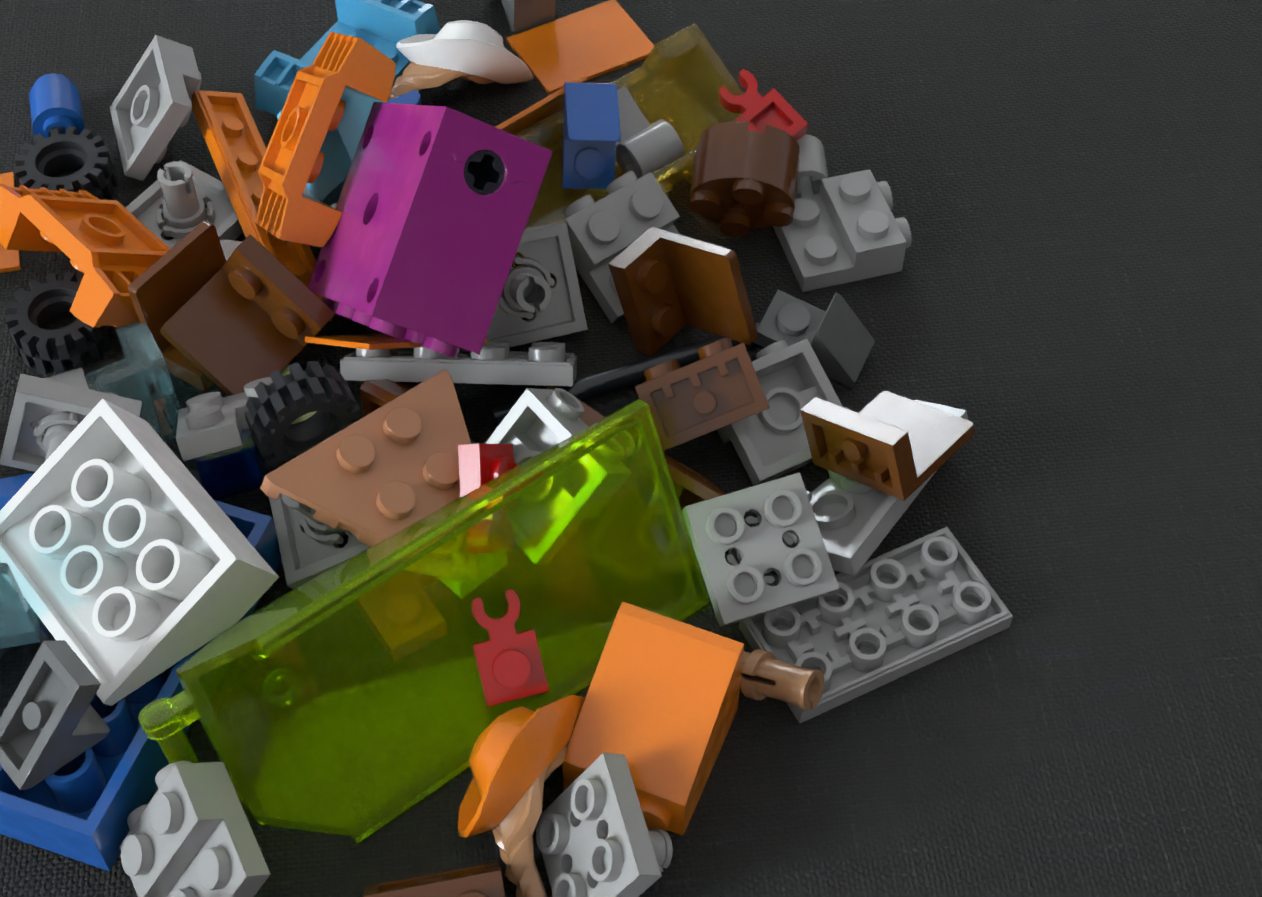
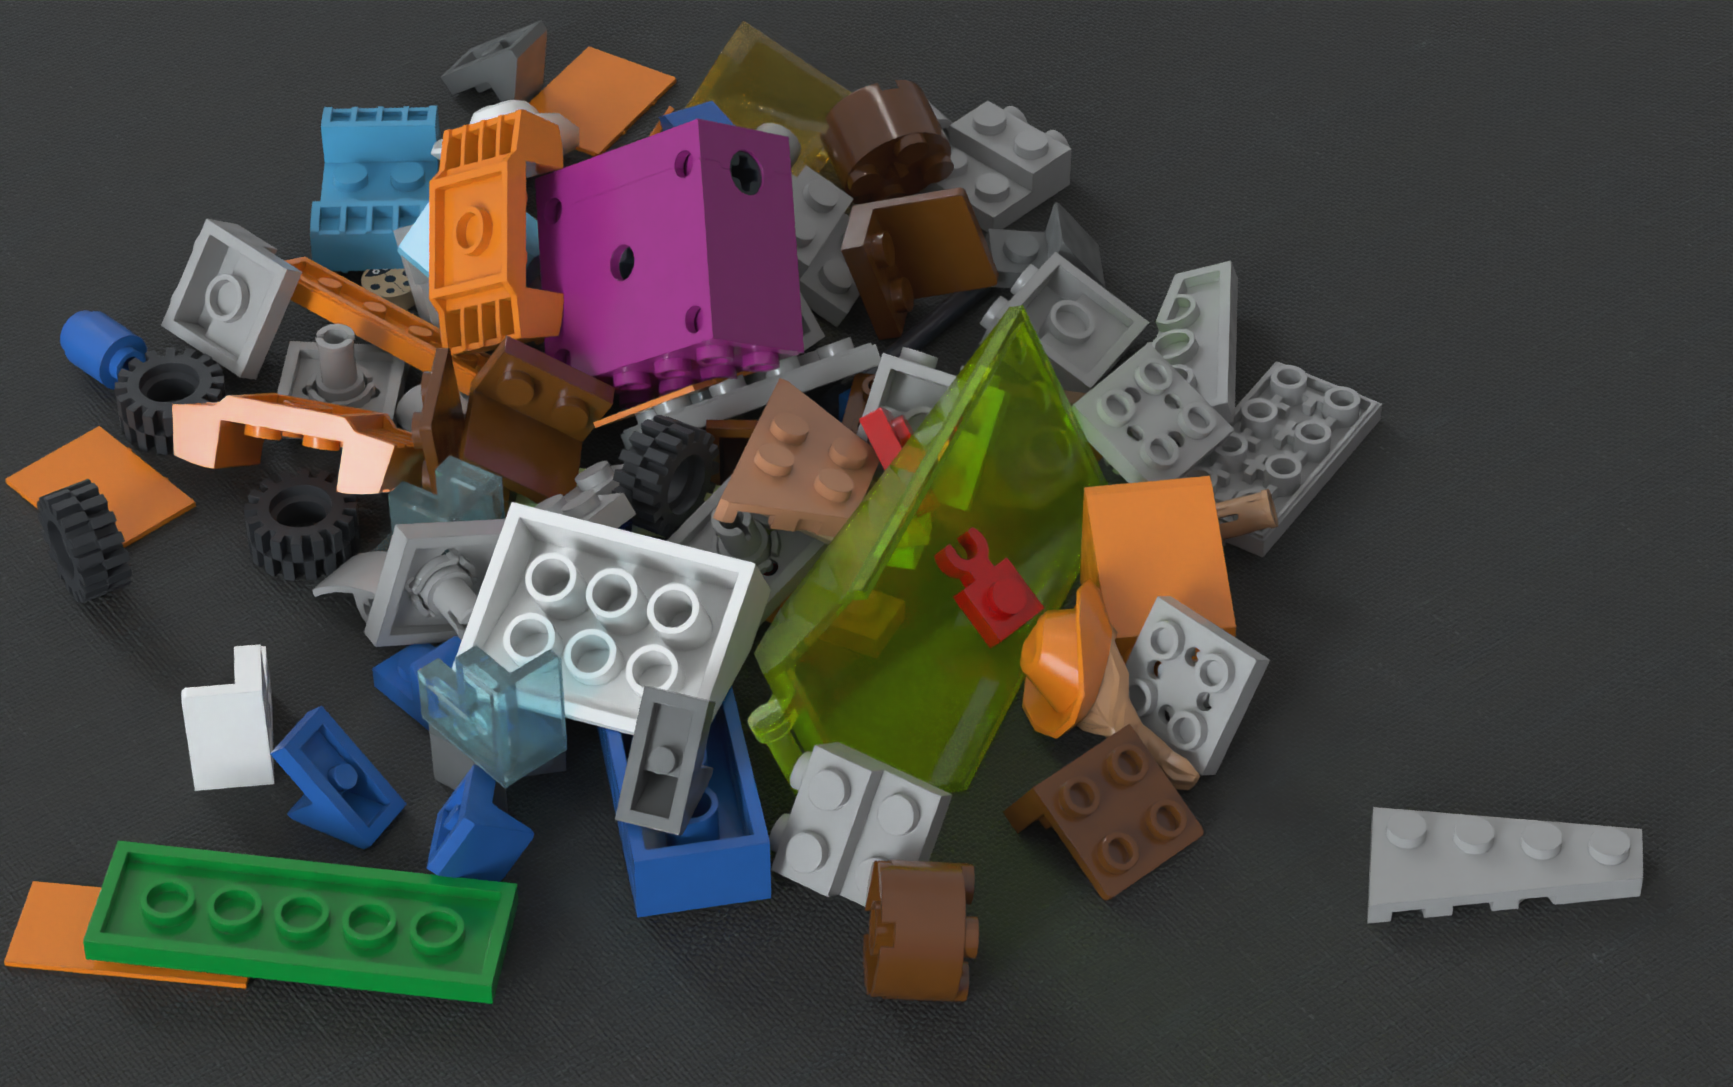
camera: 30 degrees left, 10 degrees down
(702, 394) = (986, 304): reddish brown bracket -> none
(762, 111) = (847, 79): red plate -> none
(887, 444) = (1185, 306): reddish brown bracket -> none

